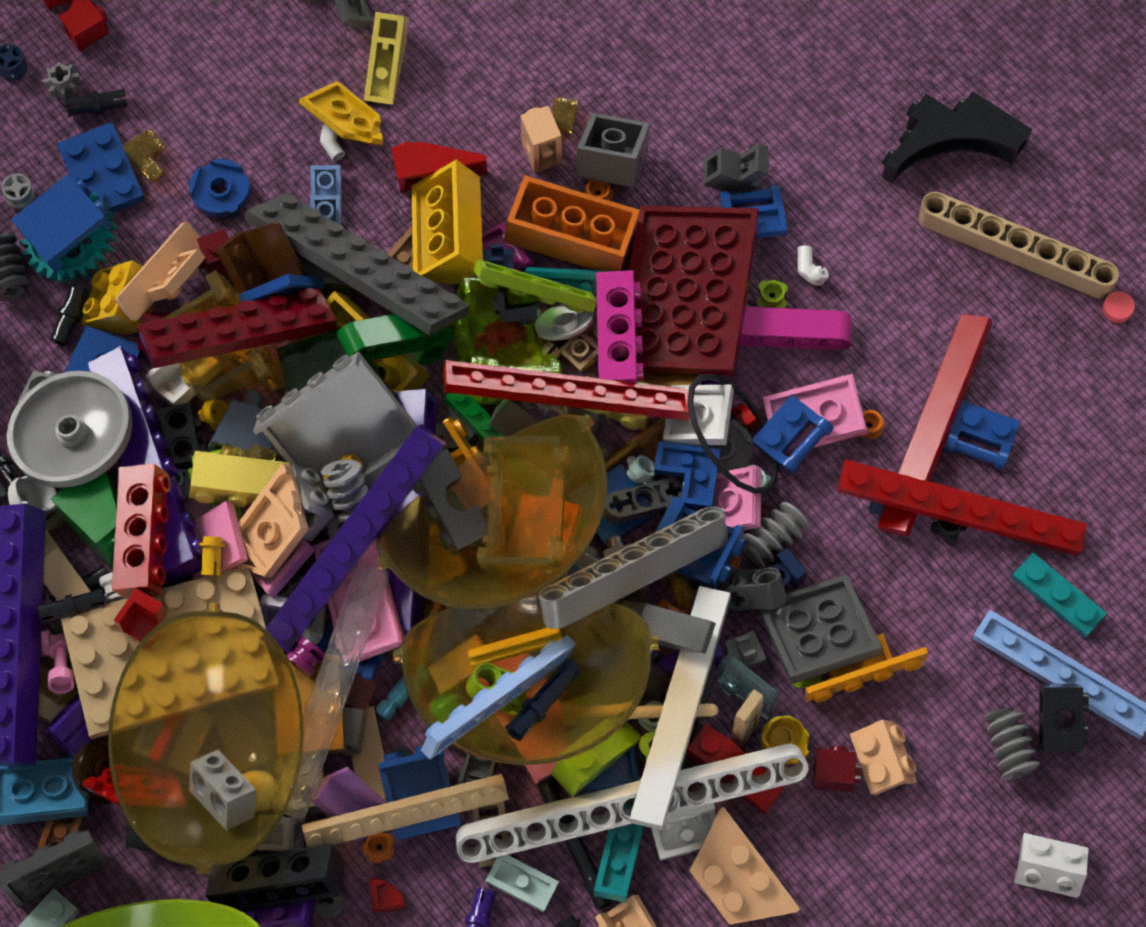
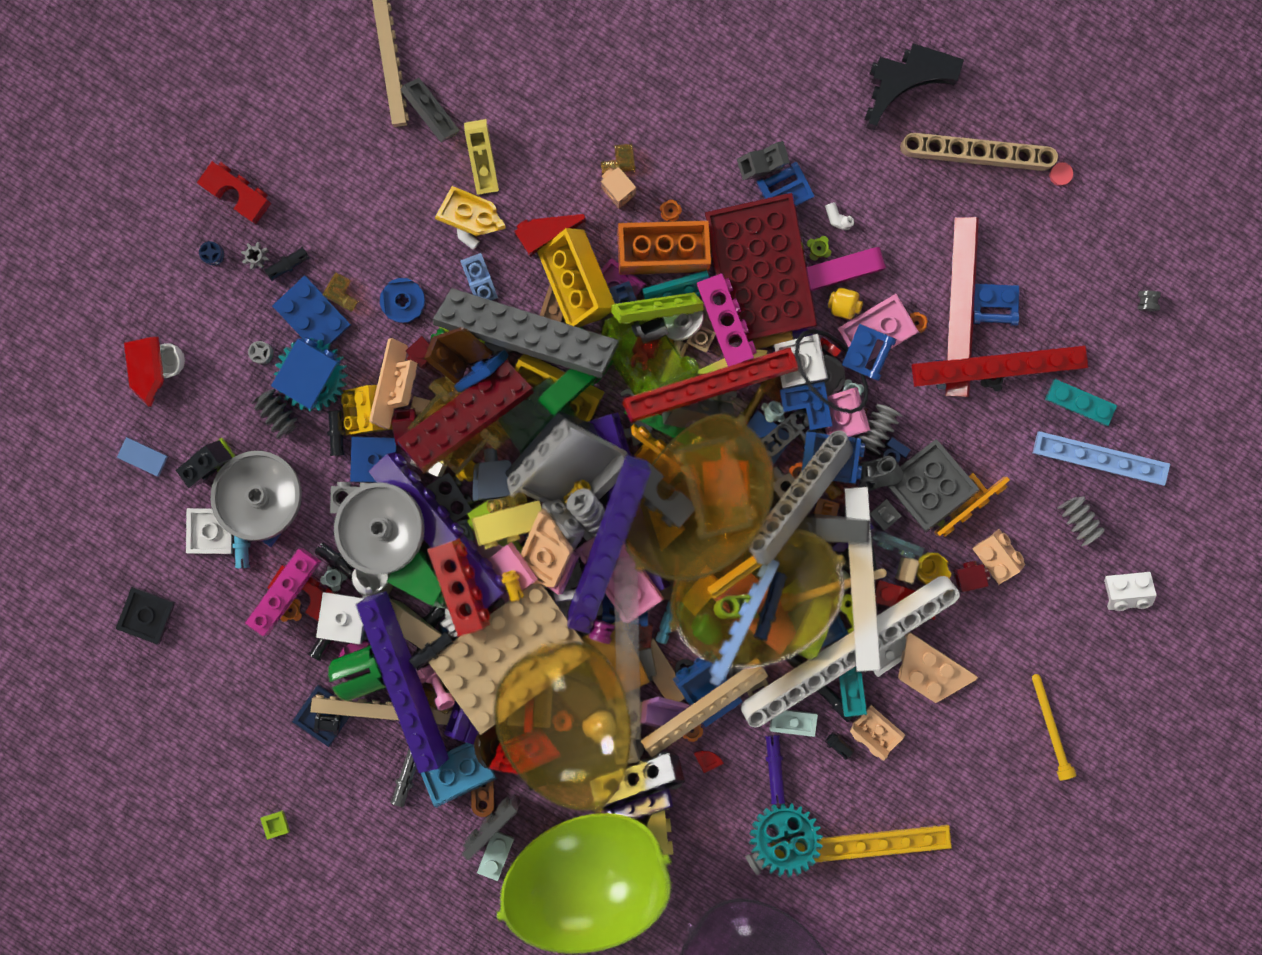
camera: 20 degrees left, 20 degrees up
(139, 615) = (483, 646): red panel -> none
(222, 789) = (584, 744): light grey brick -> none
(612, 150) = (672, 178): dark grey brick -> none
(782, 368) = (845, 303): none -> yellow head
(1053, 700) = (1102, 483): black brick -> none

